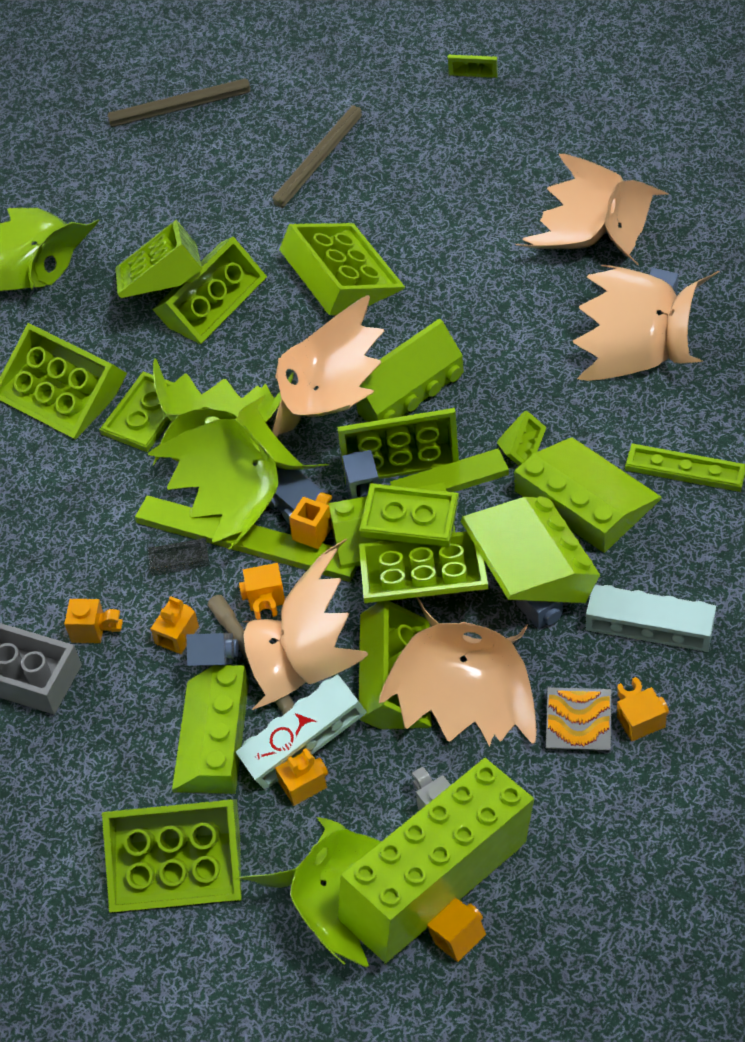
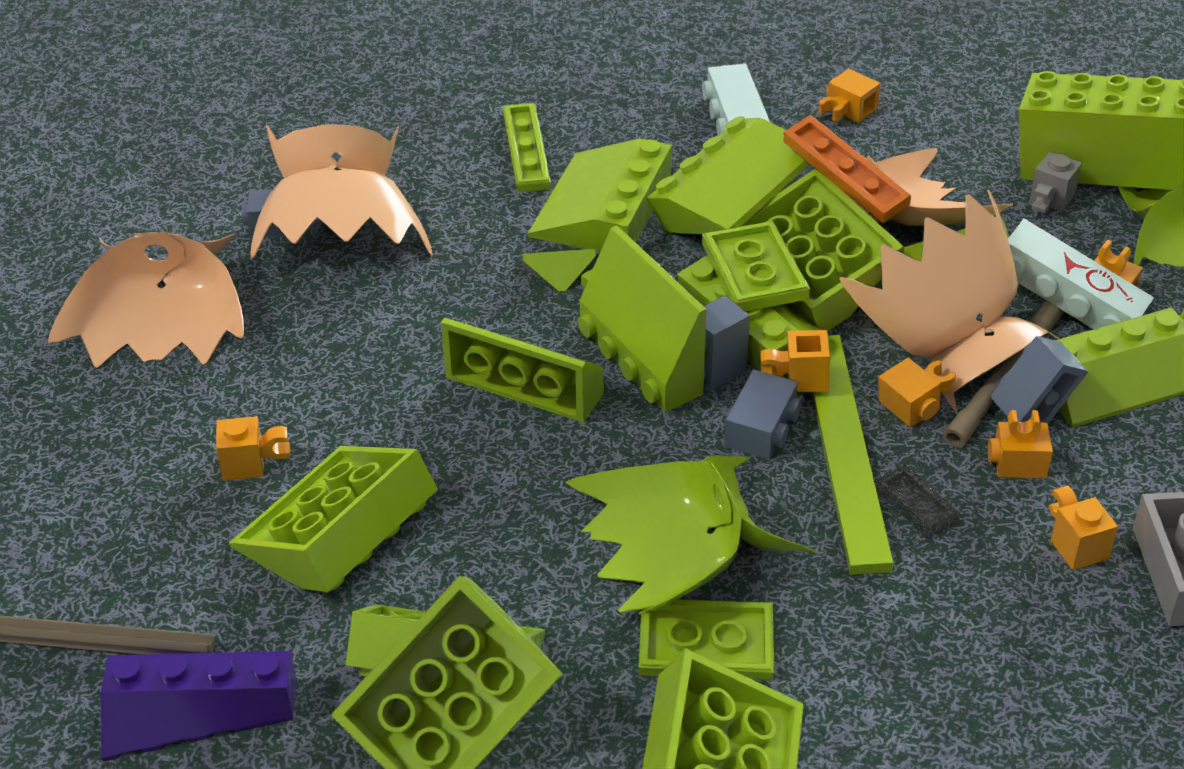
camera: 120 degrees left, 10 degrees down
(220, 463) = (798, 440): lime piece -> none
(245, 182) = (191, 695): none -> dark purple wedge
(333, 362) = (587, 384): light nougat piece -> none
(417, 233) = (243, 448): none -> light orange brick
(465, 592) = (847, 168): none -> orange plate
(578, 719) = (884, 132): slope -> none

